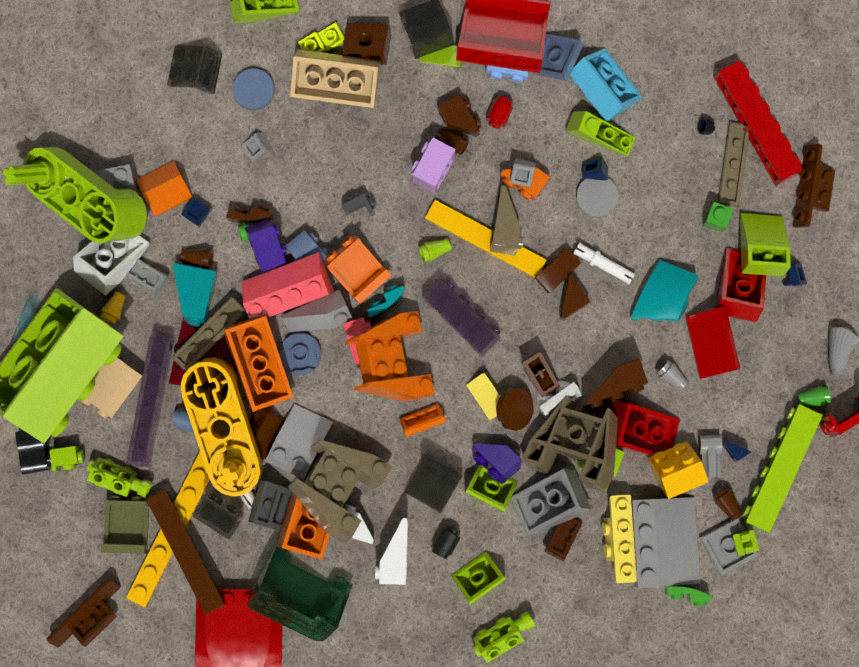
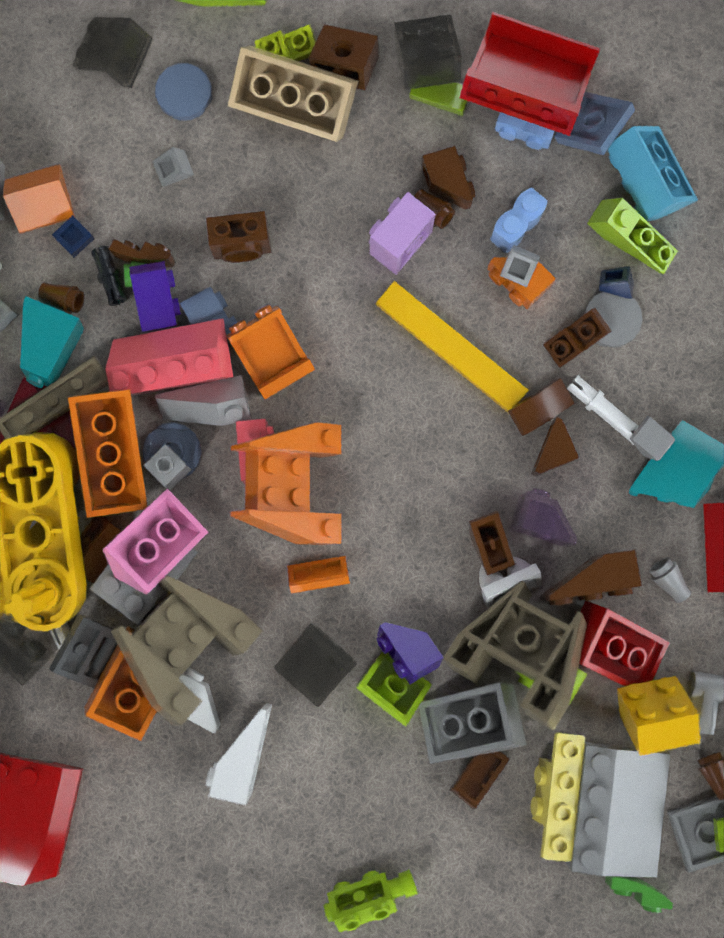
camera: 10 degrees right, 0 degrees up
(228, 235) = (108, 275): none -> black pin
(299, 597) = (98, 787): clear green windscreen -> none
(301, 365) = (167, 467): none -> light grey brick
(304, 420) = (153, 543): none -> bright pink slope
(317, 190) = (239, 236): none -> reddish brown brick
(354, 203) = (286, 265): dark grey bracket -> none
(392, 296) = (310, 399): teal slope -> none
(432, 250) = (379, 347): lime cone -> none
(446, 542) = (316, 749): pearl dark grey brick -> none
(462, 317) = (399, 445): clear purple brick -> none
(478, 577) = (351, 809): lime slope -> none
(485, 395) = (412, 559): light yellow slope -> none
(499, 112) = (503, 182): red brick -> none
(506, 229) = (484, 334): dark tan slope -> none
(512, 143) = (520, 219): none -> light blue brick
(515, 409) = (447, 584): reddish brown tile -> none
(572, 350) = (542, 519): none -> clear purple slope
(574, 215) = (577, 337): none -> reddish brown slope
(639, 278) = (652, 439): none -> light grey slope

